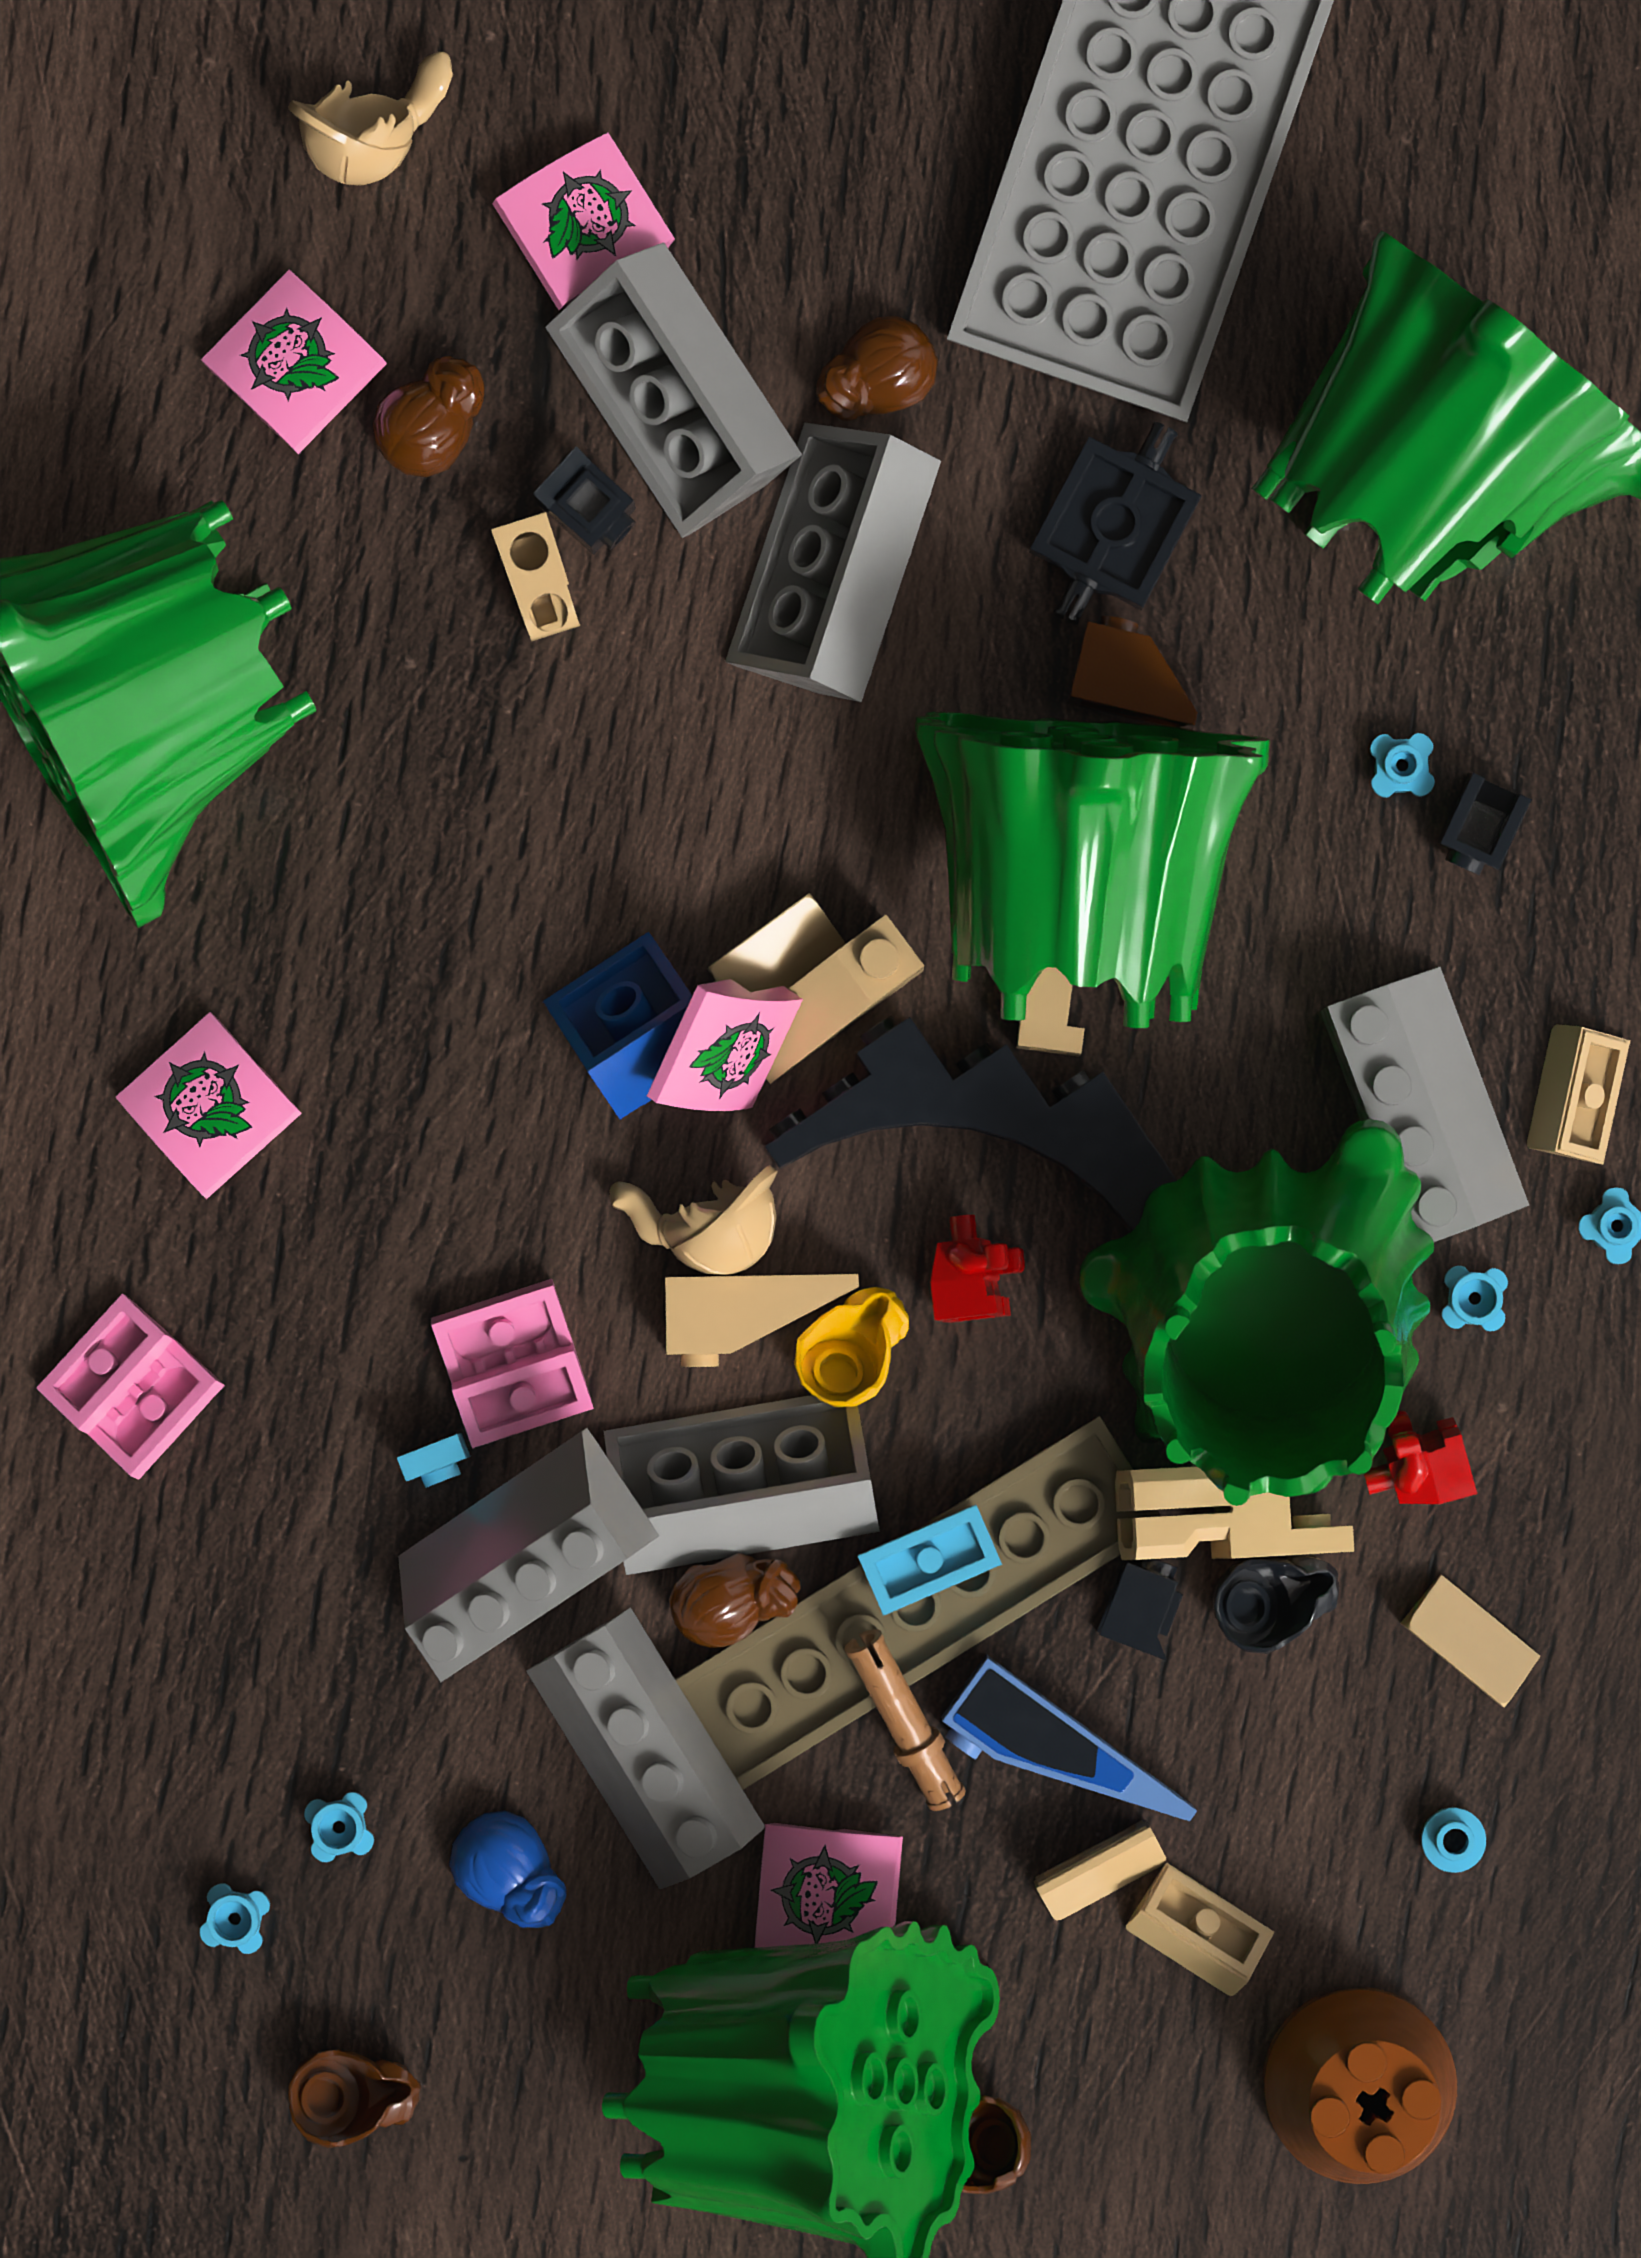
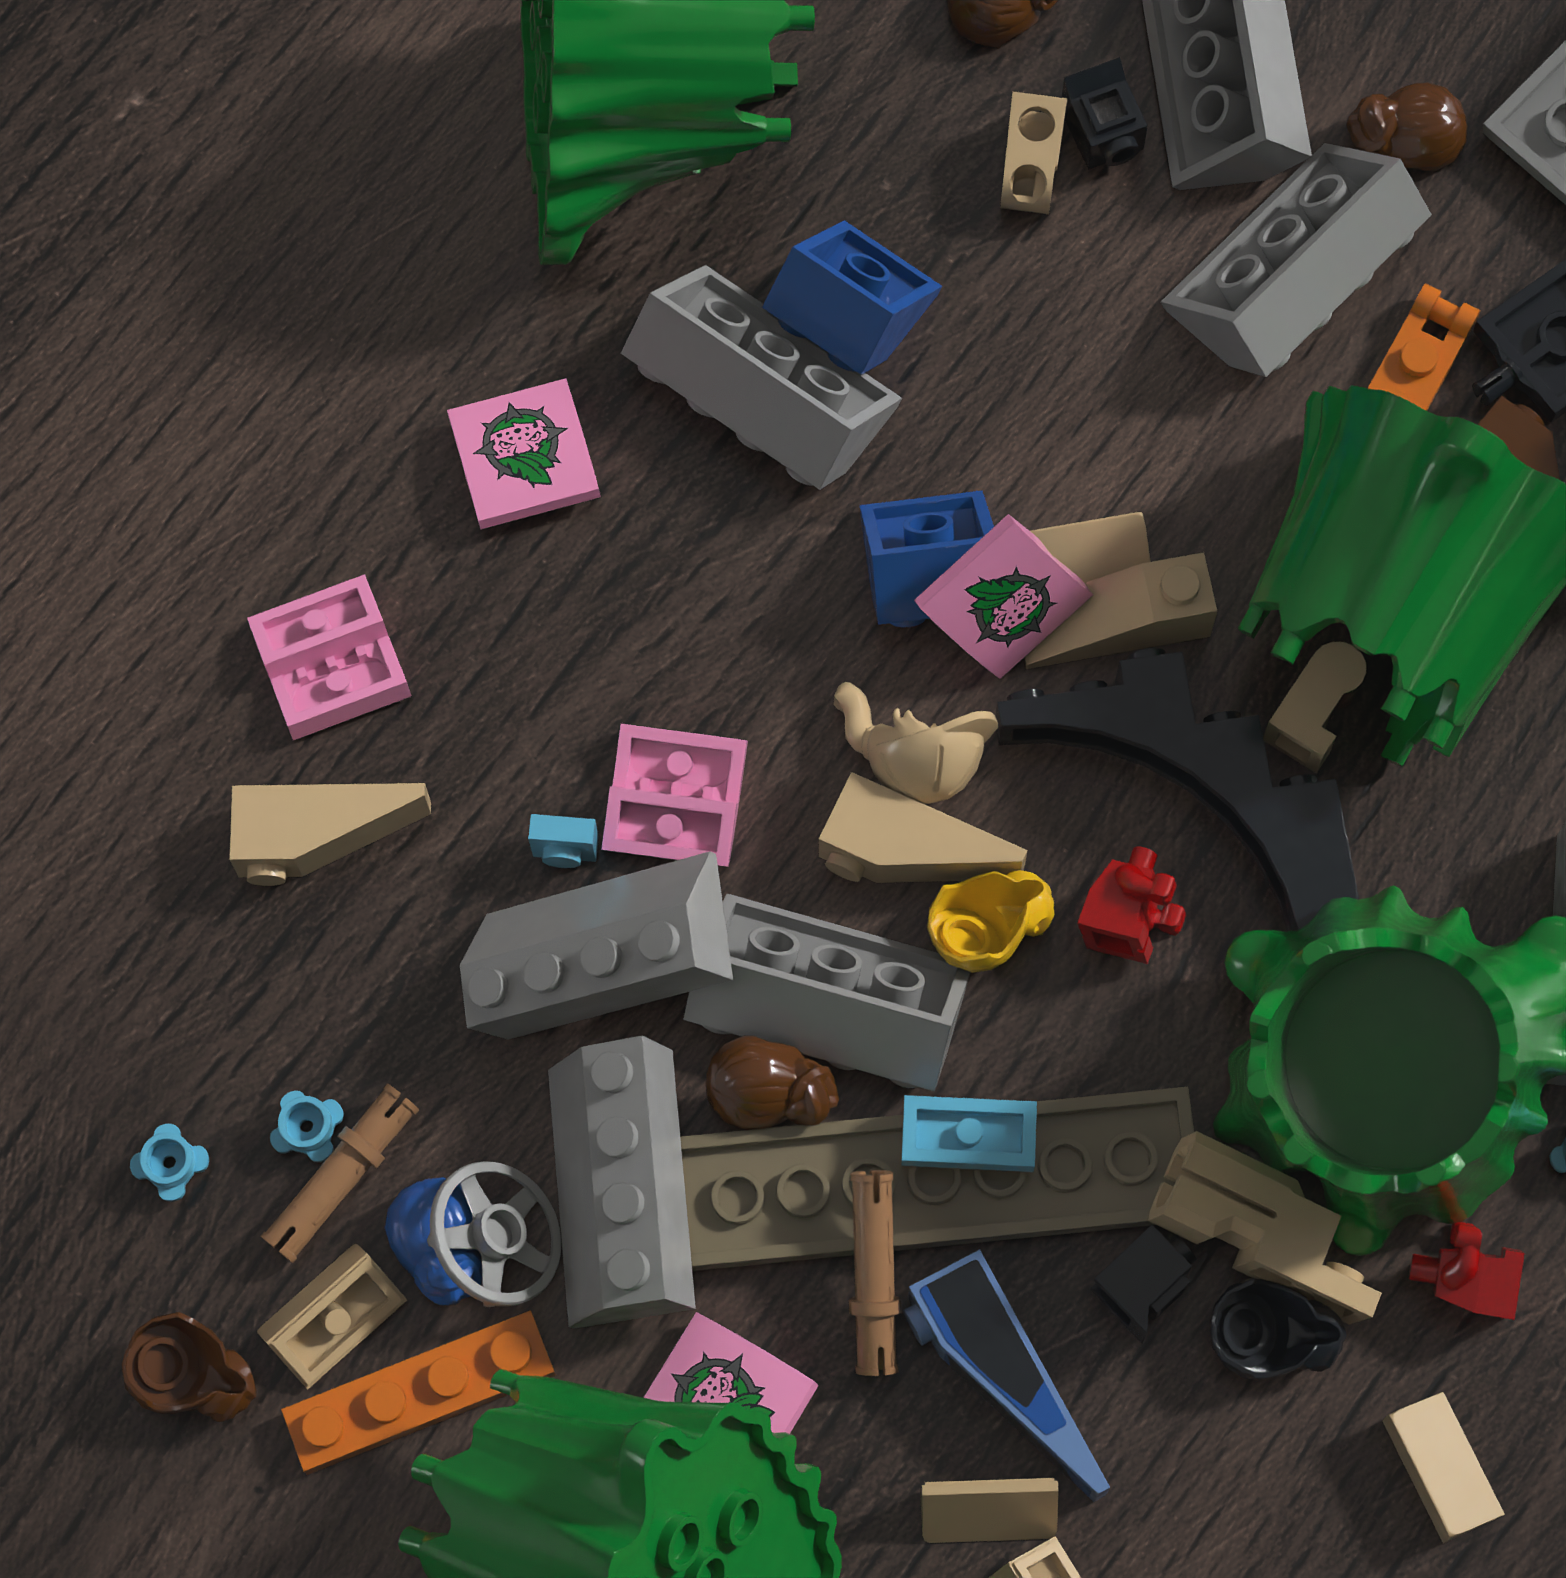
camera: 25 degrees right, 15 degrees down
(195, 1562) = (305, 827): none -> tan slope
(390, 922) = (756, 377): none -> light grey slope
(391, 1855) = (340, 1172): none -> medium nougat pin
(436, 801) = (849, 296): none -> blue slope
(446, 1980) = (331, 1315): none -> tan slope
(556, 1847) = (495, 1232): none -> light grey wheel
(558, 2010) = (413, 1393): none -> orange plate
(991, 622) = (1418, 360): none -> orange plate

